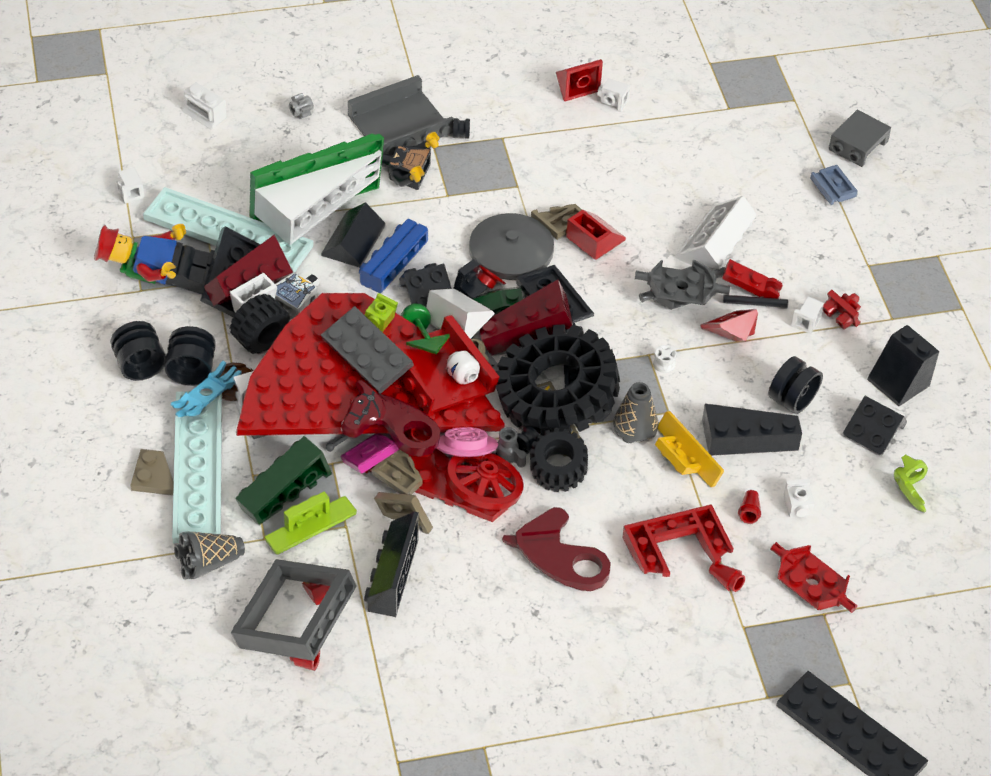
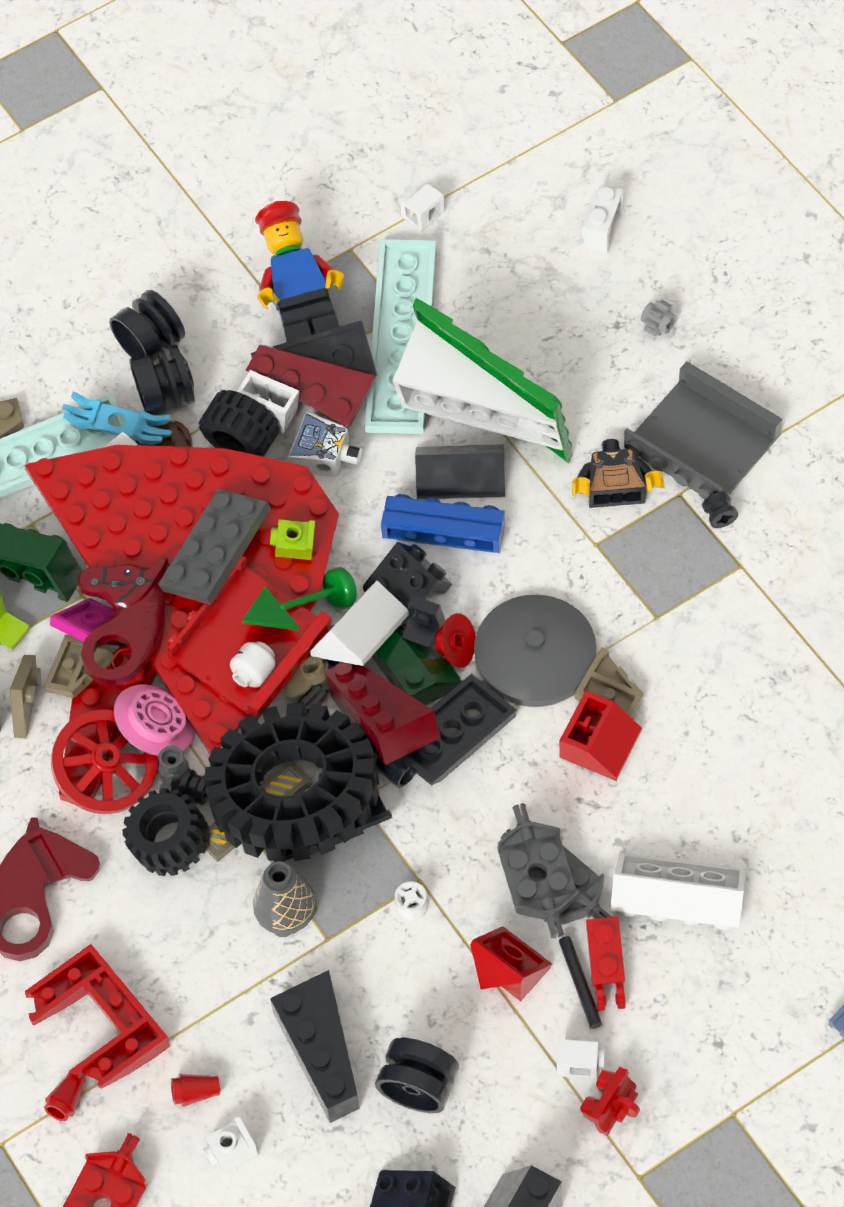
camera: 75 degrees right, 10 degrees up
(685, 451) = (249, 974): yellow bracket -> none

